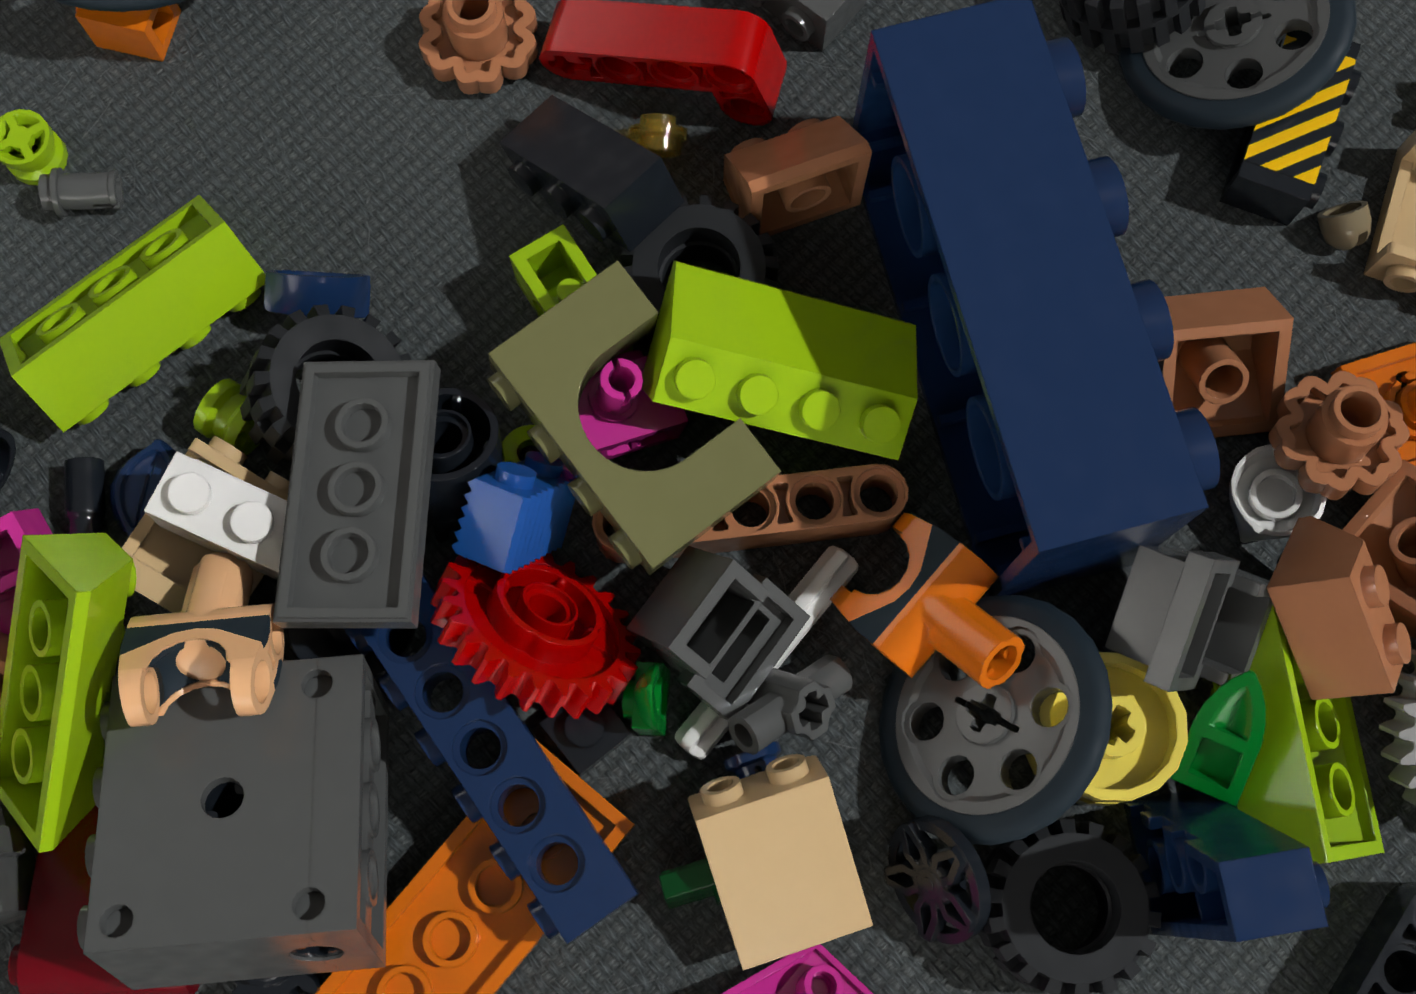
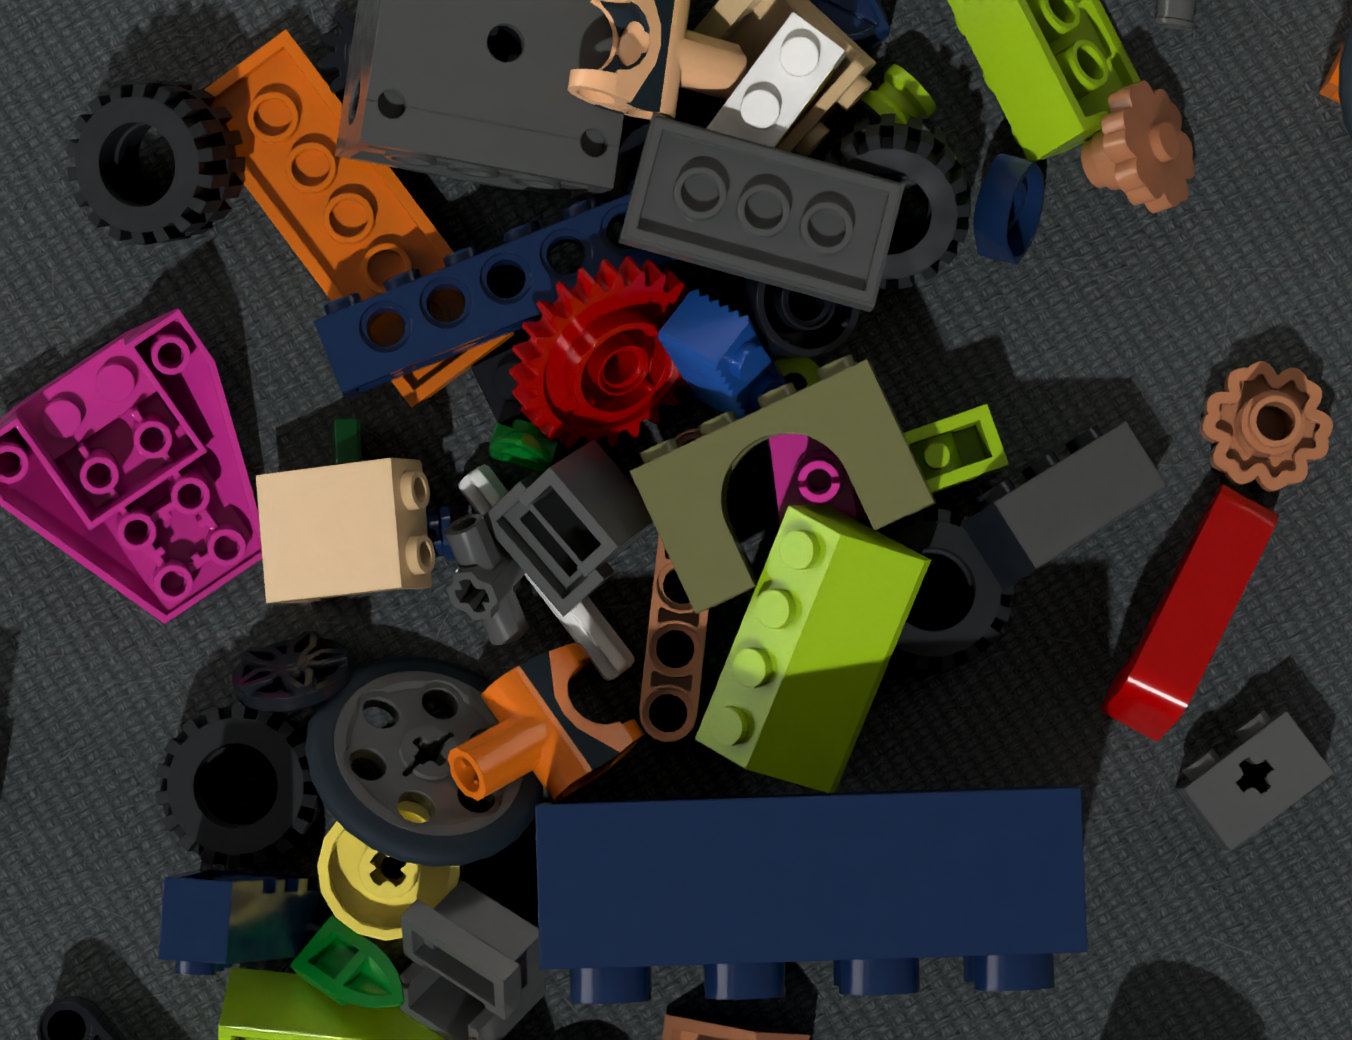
camera: 105 degrees right, 10 degrees up
(239, 186) = (1141, 149): none -> nougat plant
(659, 134) = (1105, 587): clear yellow plate -> none
(799, 174) = (1027, 715): nougat slope -> none

